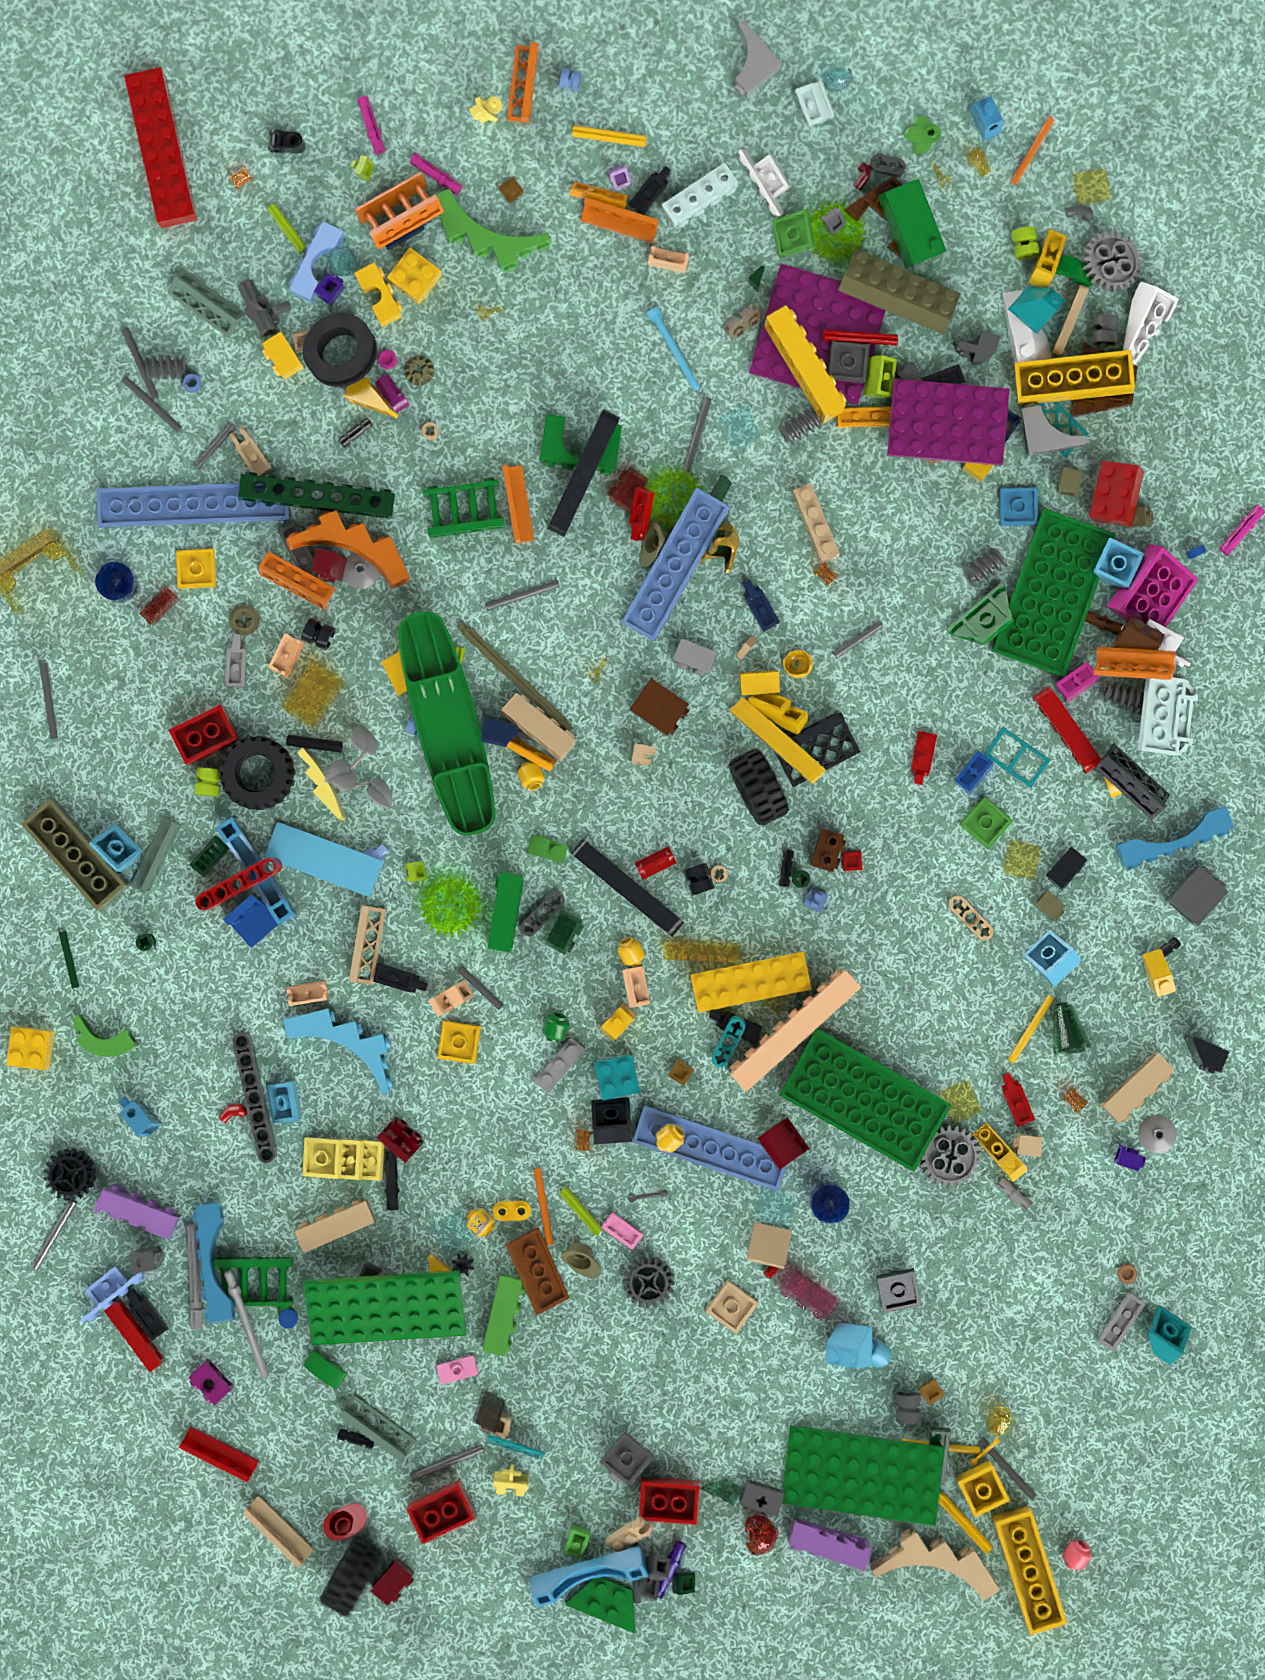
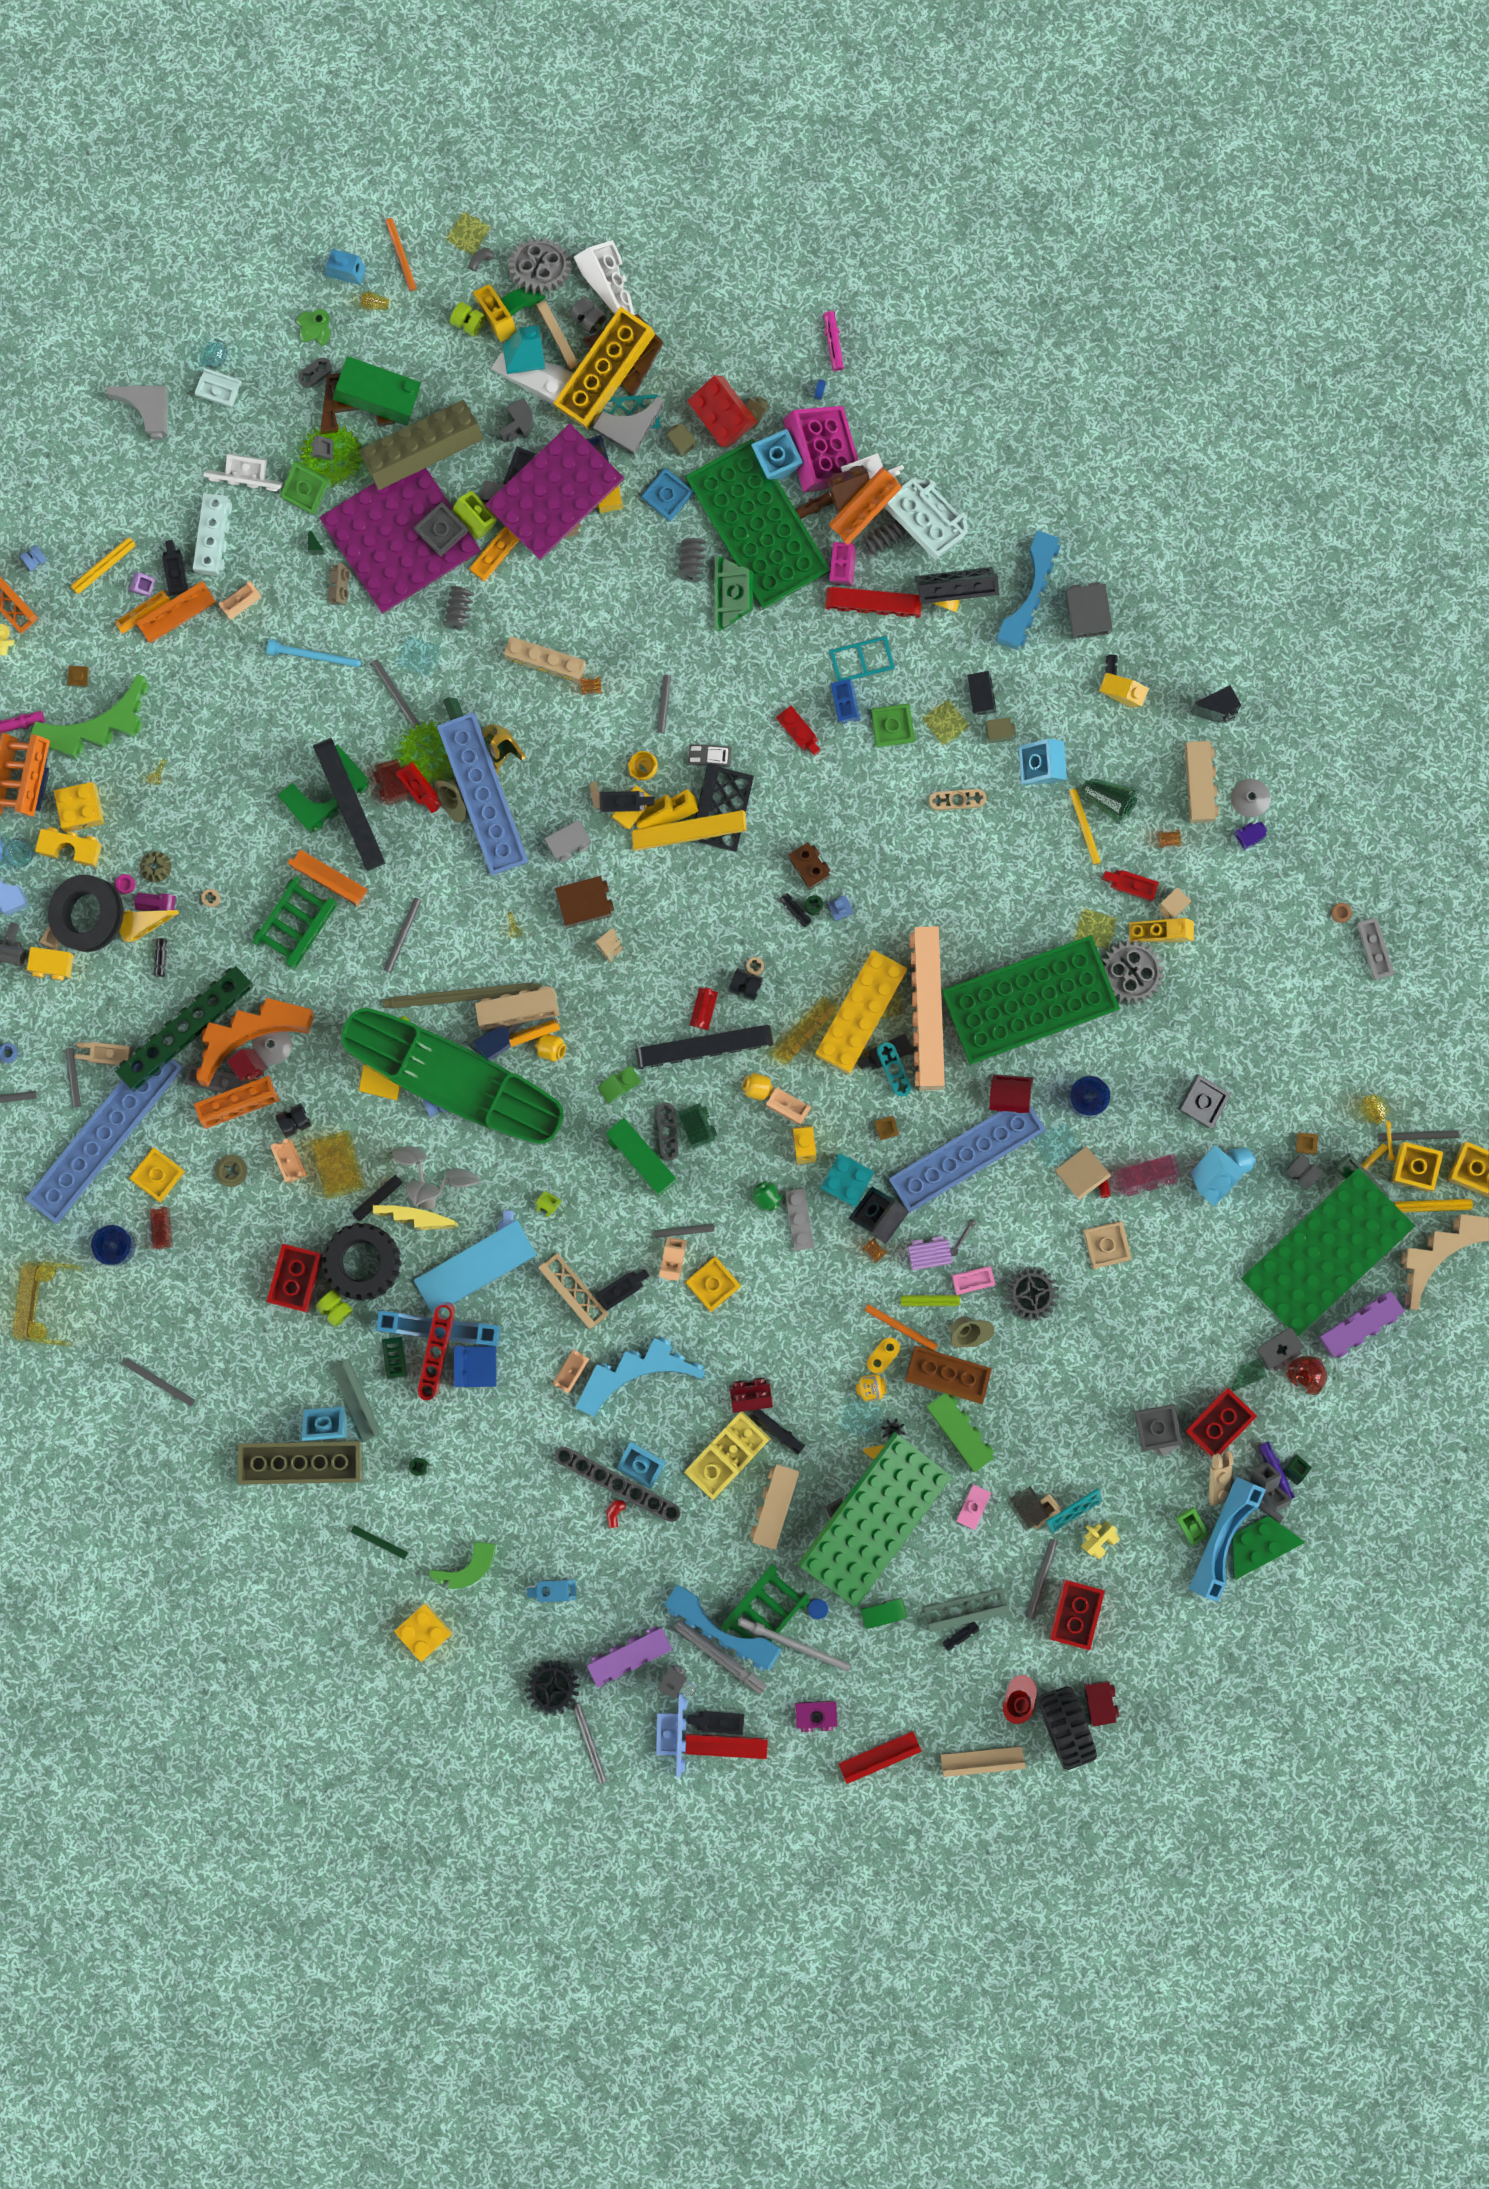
camera: 45 degrees left, 5 degrees down
(236, 663) = (260, 1206): light grey hinge -> none
(322, 289) = (30, 889): dark purple brick -> none
(451, 923) = (584, 1188): clear neon green gear -> none
(614, 1182) = (929, 1254): none -> lavender brick
(670, 1138) = (930, 1178): yellow head -> none
(758, 674) = (624, 801): none -> black hinge
(758, 787) = (712, 874): black tyre -> none
(760, 606) = (572, 757): dark blue hinge -> none
(804, 364) = (414, 562): yellow brick -> none
(848, 706) = (709, 754): none -> slope
(852, 861) = (834, 854): red tile -> none
(860, 337) = (433, 501): red axle -> none
(864, 177) = (305, 393): dark red arm -> none
(941, 176) = (359, 339): clear yellow hand -> none
(1014, 1193) = (1204, 947): light grey pin -> none
(1168, 1335) = (1416, 921): teal slope -> none

